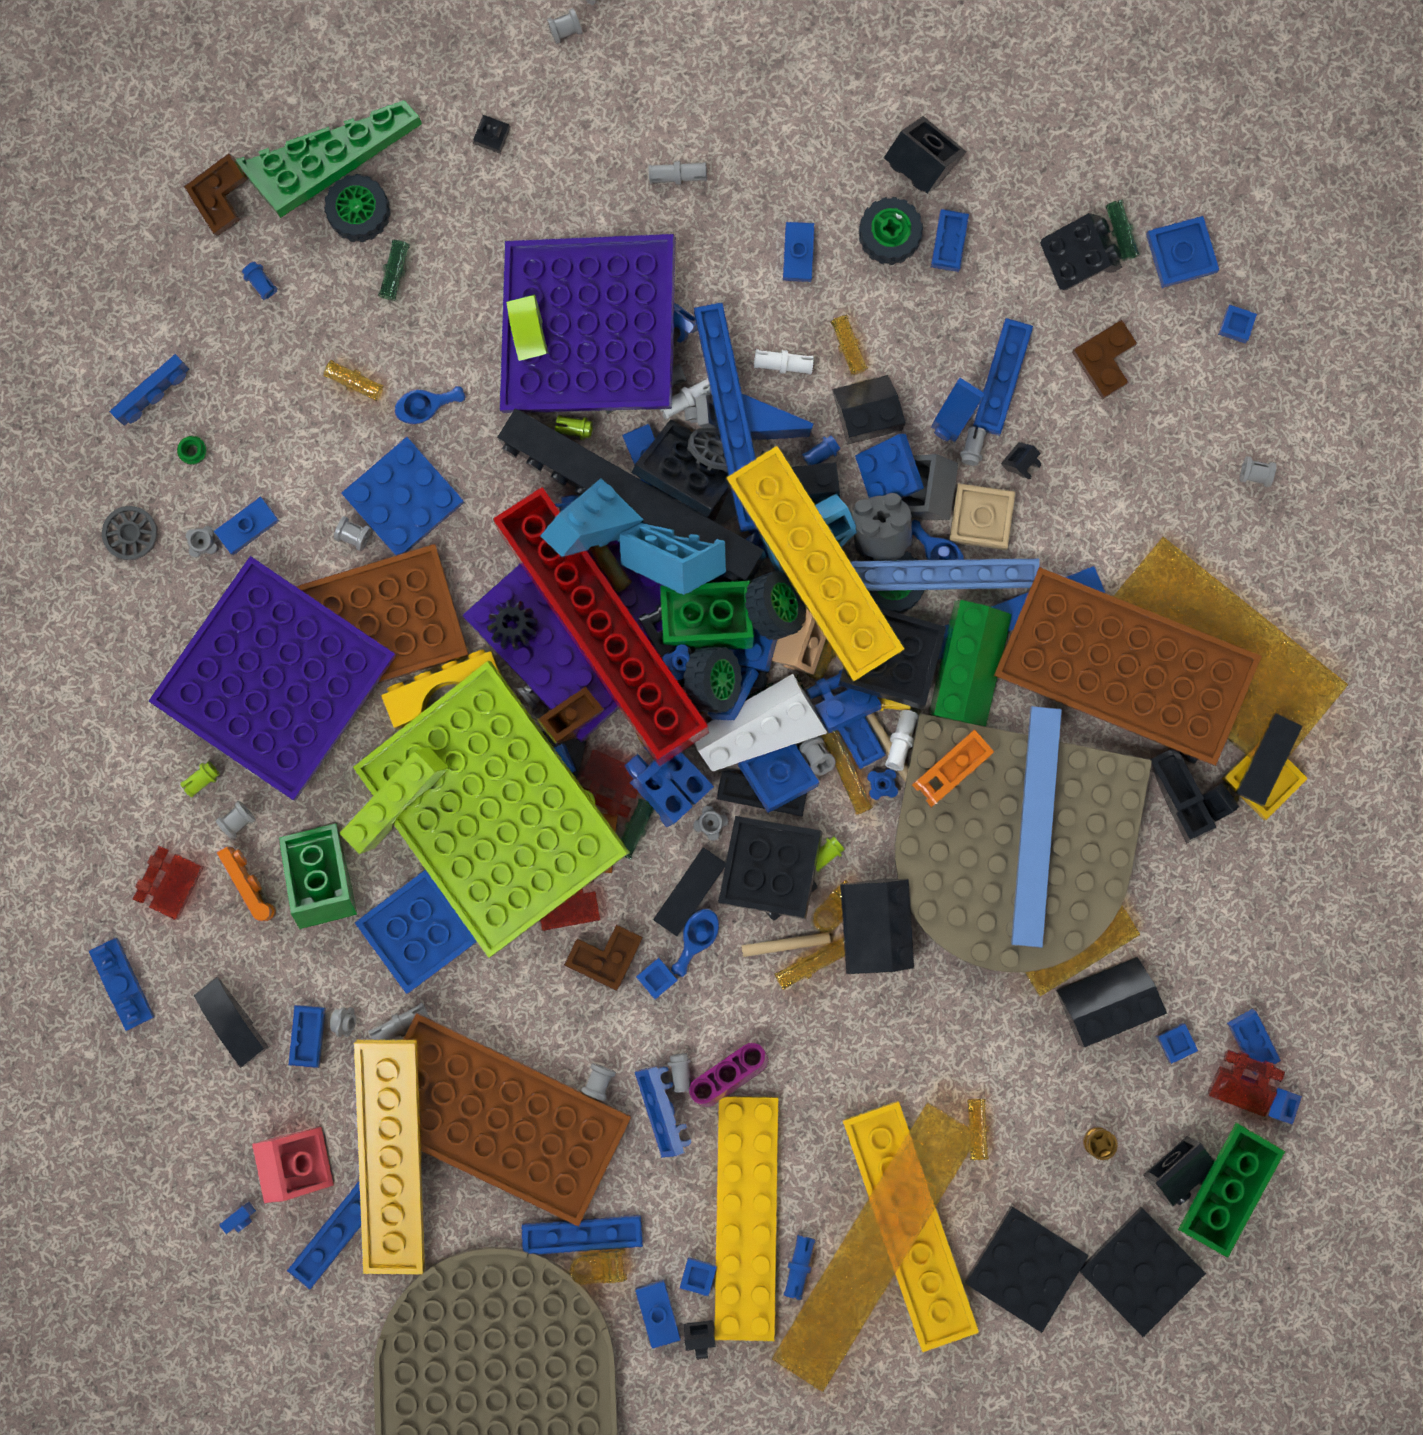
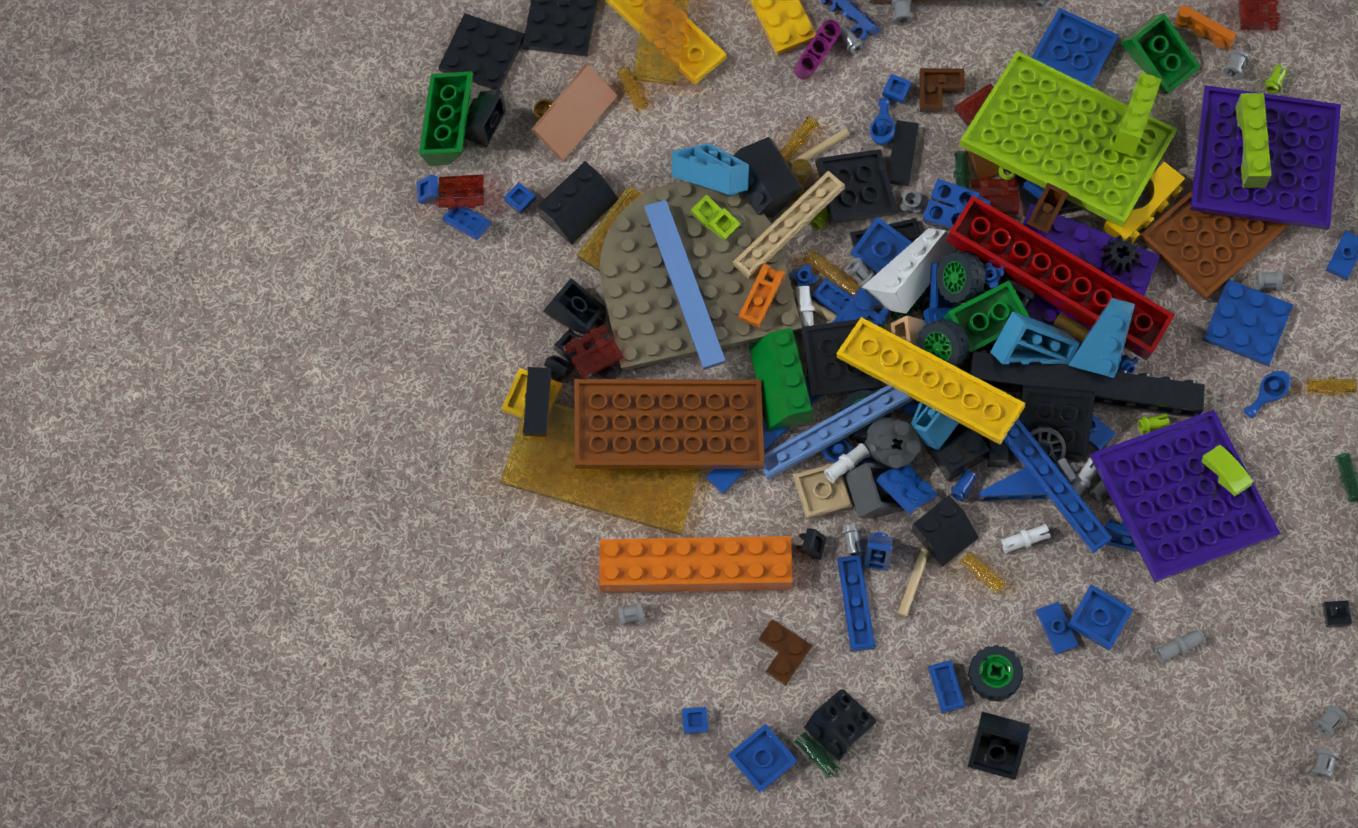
camera: 160 degrees right, 15 degrees down
(270, 711) = (1253, 124): none -> lime arch
(748, 238) = (1100, 617): none -> blue plate
(878, 845) = (788, 224): none -> tan tile
(929, 370) = (913, 582): none -> tan bar
(938, 962) = (710, 168): none -> dark azure wedge
(943, 530) = (846, 463): none -> white pin
(963, 894) = (714, 218): none -> lime slope
(1066, 1125) = (574, 112): none -> nougat tile
(1164, 493) = (695, 564): none -> orange brick
(1173, 860) = (576, 308): none -> black slope
(1179, 780) = (595, 358): none -> clear red plate

